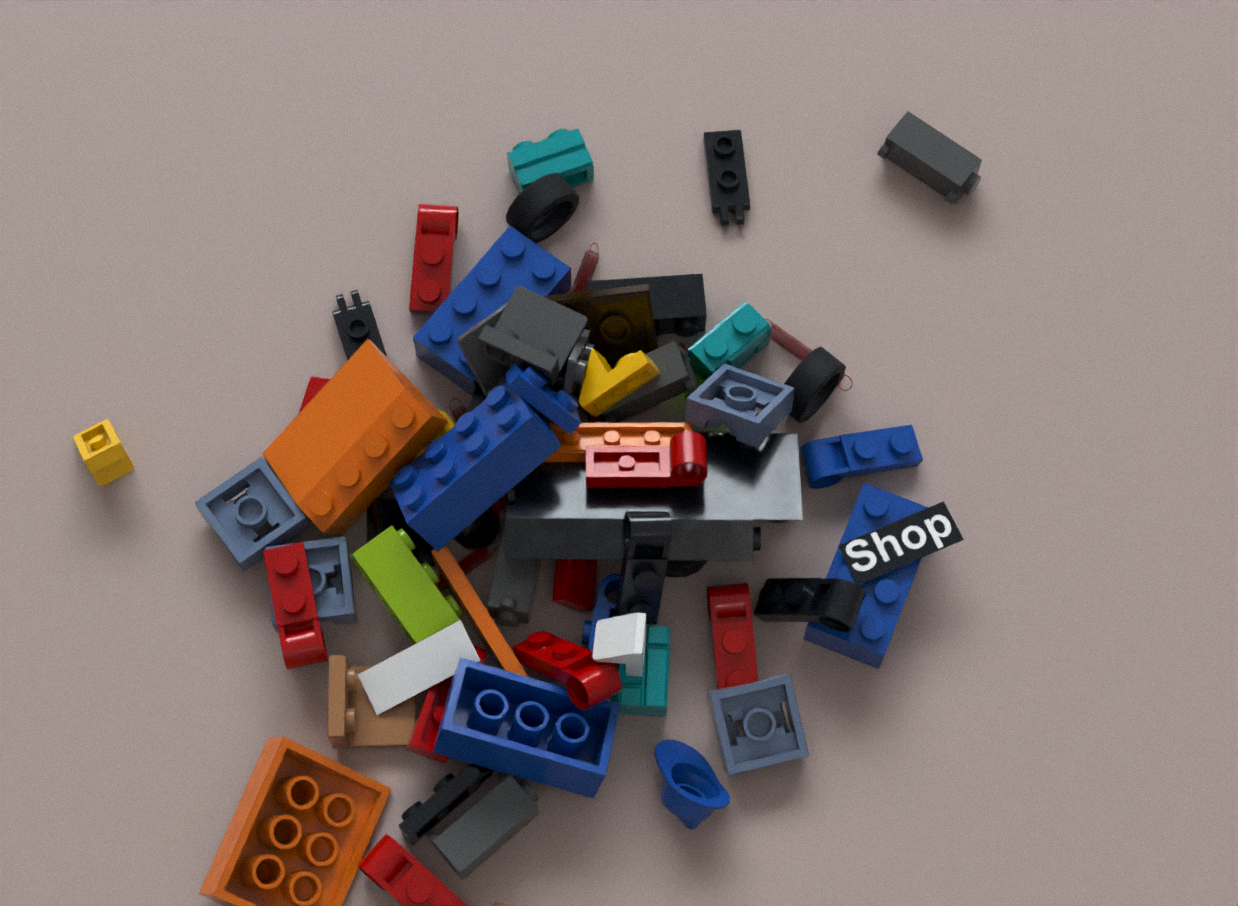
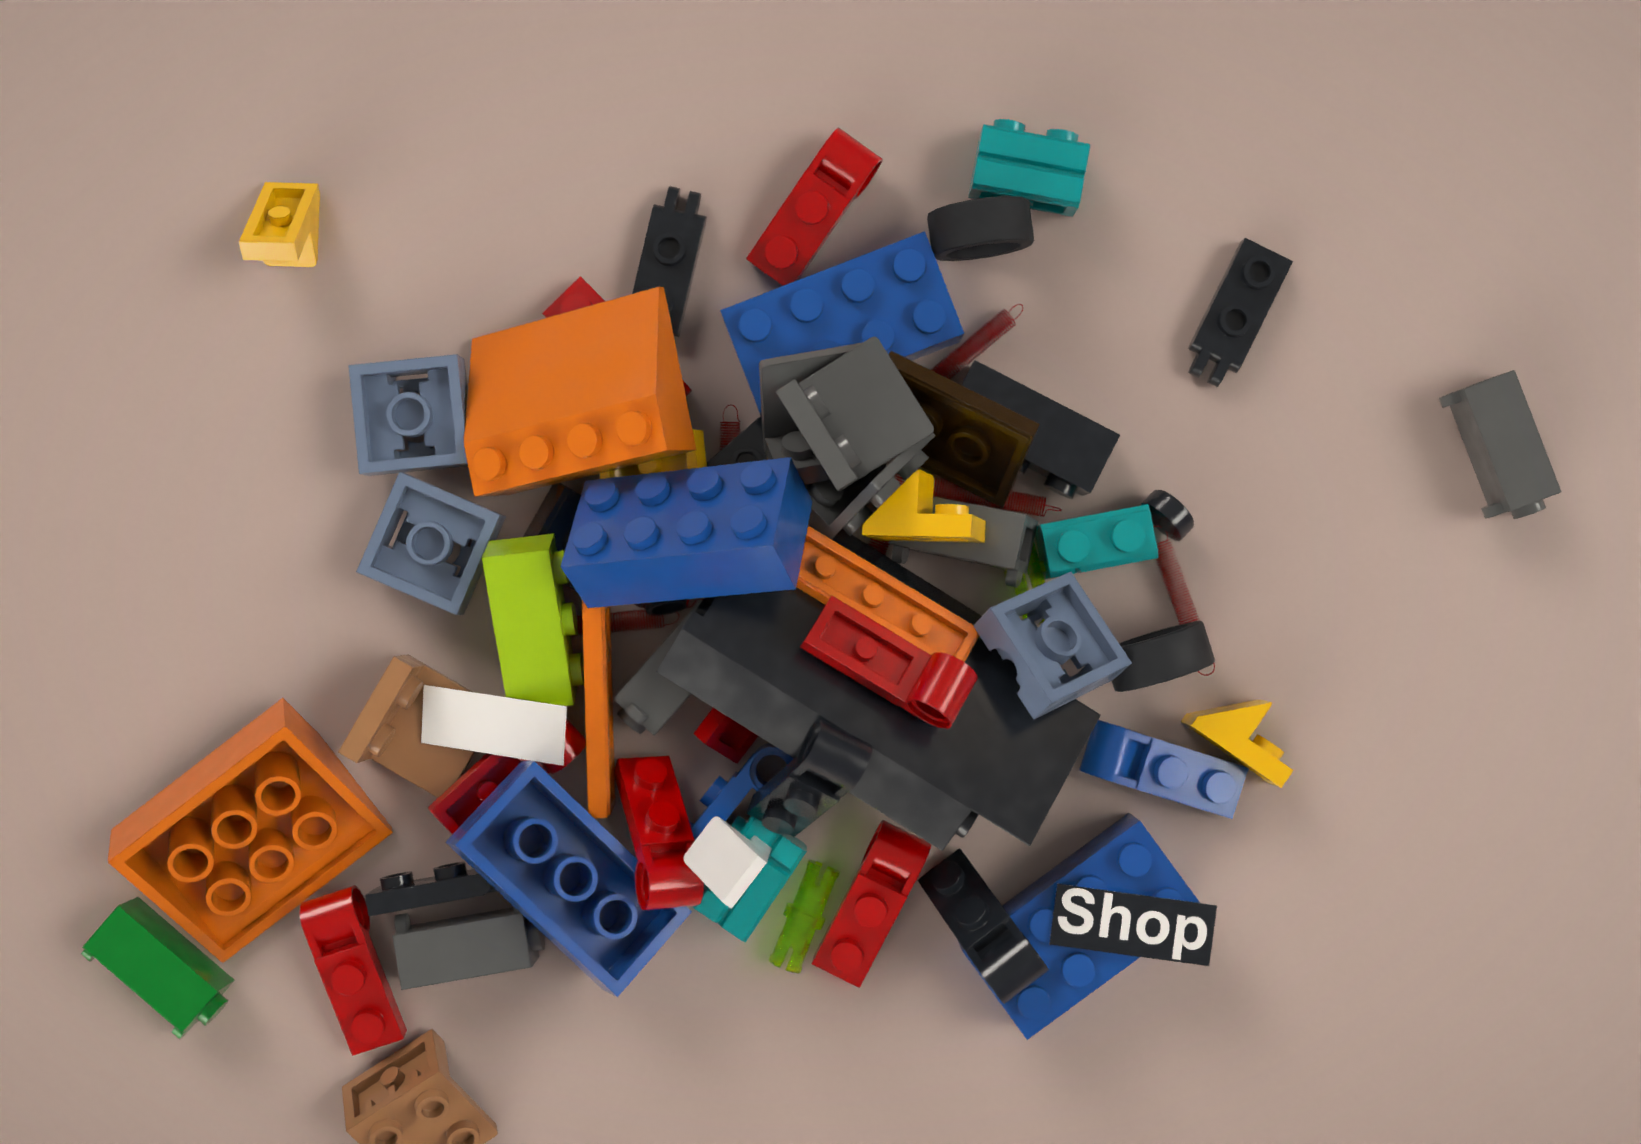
camera: 30 degrees right, 20 degrees up
(295, 606) = (391, 567): red plate -> none
(531, 387) = (813, 507): blue plate -> none
(689, 783) = (721, 1038): blue piece -> none
(694, 677) = (804, 916): none -> clear neon green pin
(762, 741) = (831, 1042): sand blue brick -> none
(766, 305) = (1169, 514): none -> black tile
(884, 410) = (1230, 731): none -> yellow slope

